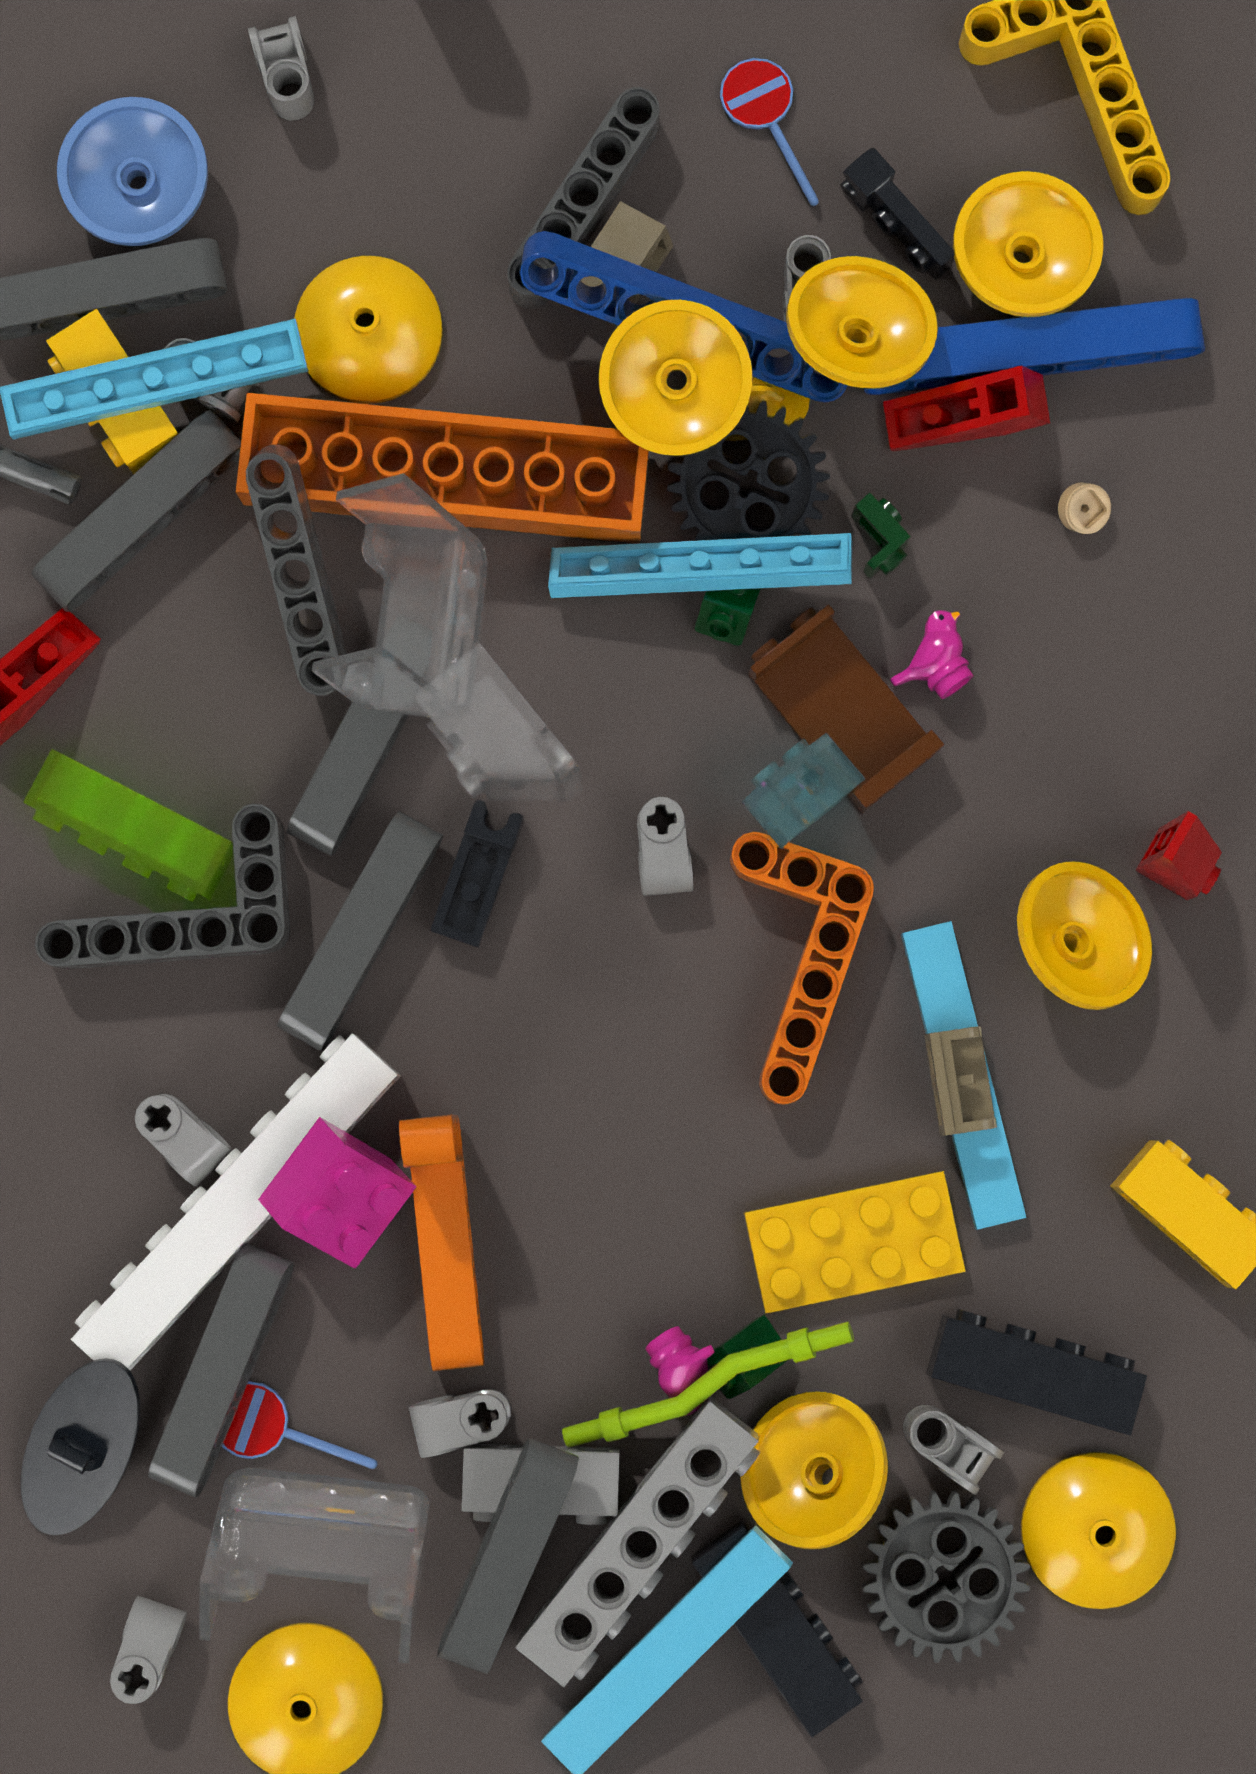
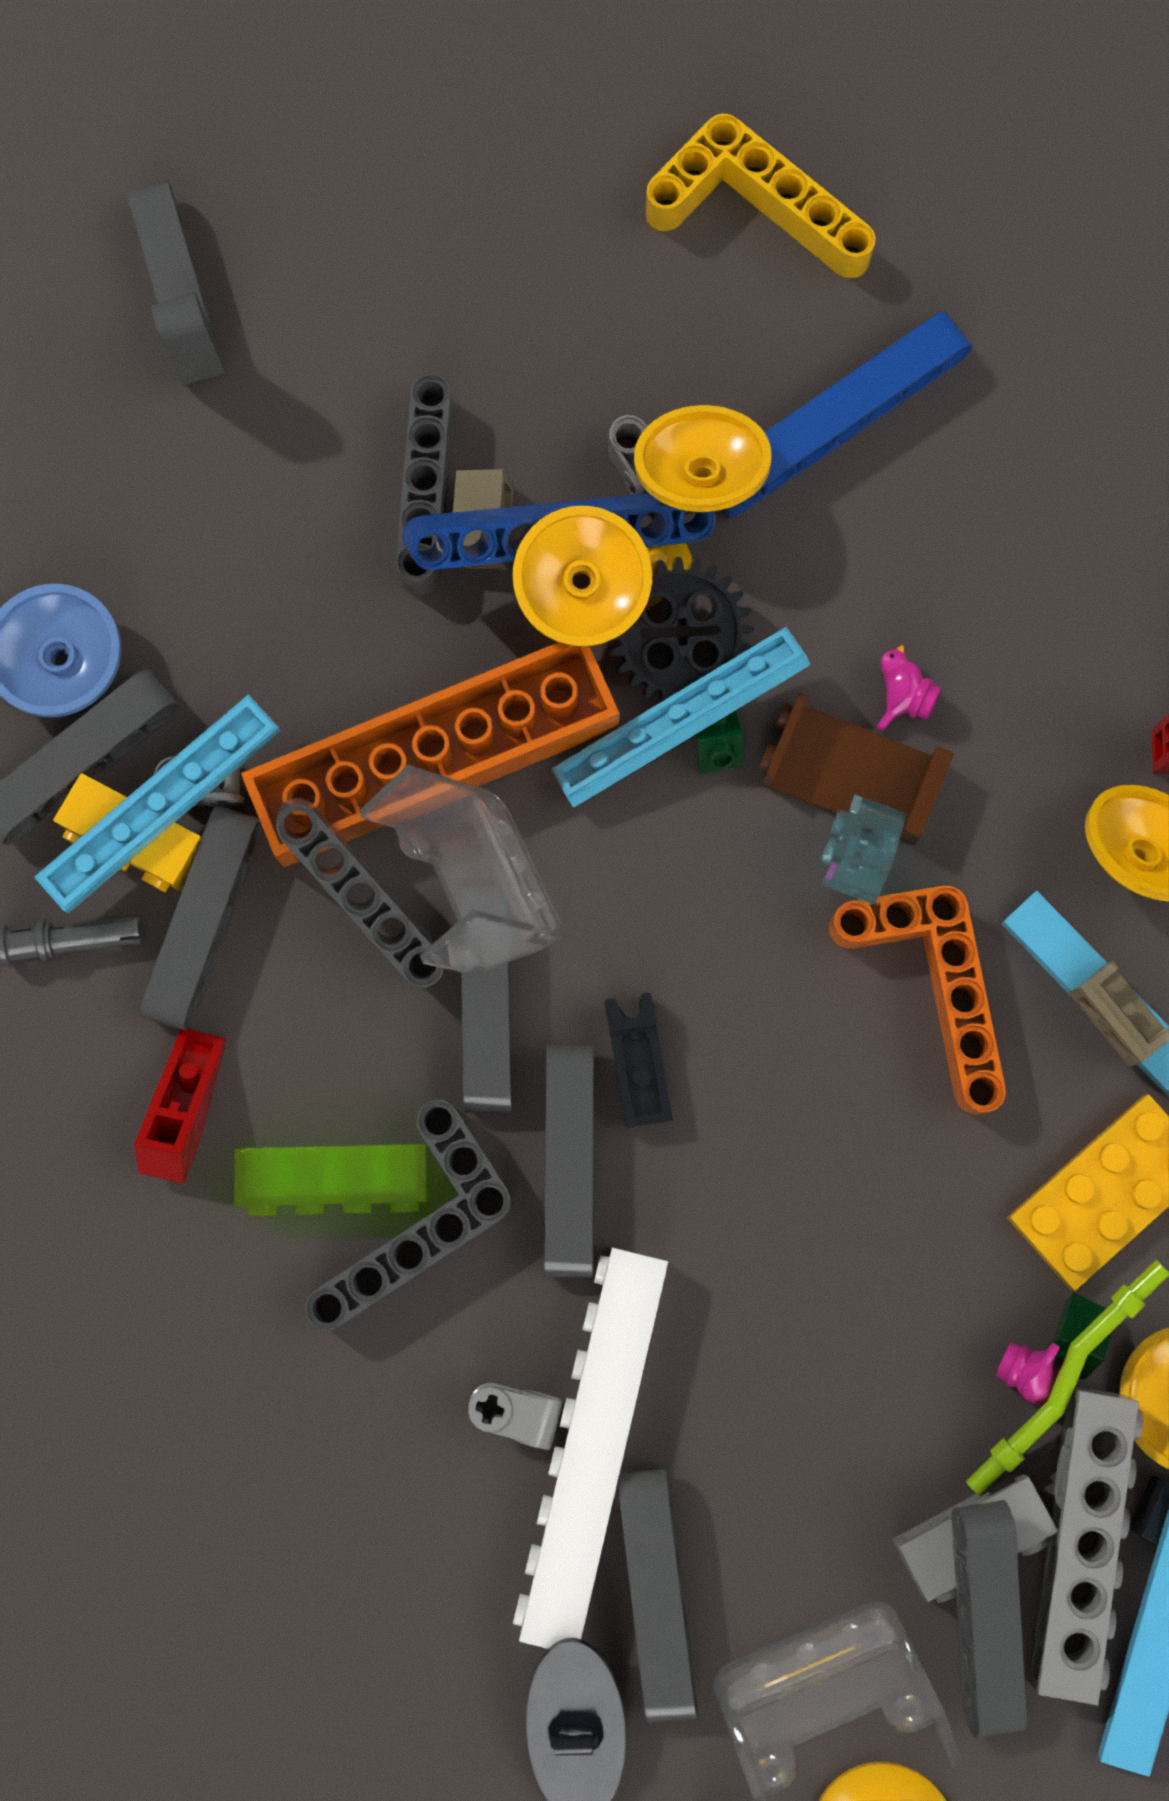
camera: 25 degrees left, 5 degrees down
(263, 1424) = (715, 1620): piece -> none
(282, 62) = (126, 505): light grey piece -> none
(336, 1193) = (674, 1389): dark pink brick -> none
(374, 360) = (325, 698): yellow dish -> none
(445, 1242) = (783, 1379): orange beam -> none
(450, 1423) = (873, 1529): light grey piece -> none
(496, 734) = (601, 934): clear windscreen -> none
(665, 858) = (781, 966): light grey piece -> none
(758, 97) = (518, 339): piece -> none
(871, 185) = (647, 358): black plate -> none
(882, 524) = (803, 611): dark green bracket -> none
(968, 410) = (817, 487): red slope -> none
(1034, 217) = (797, 317): yellow dish -> none
(1084, 508) = (950, 514): tan tile -> none

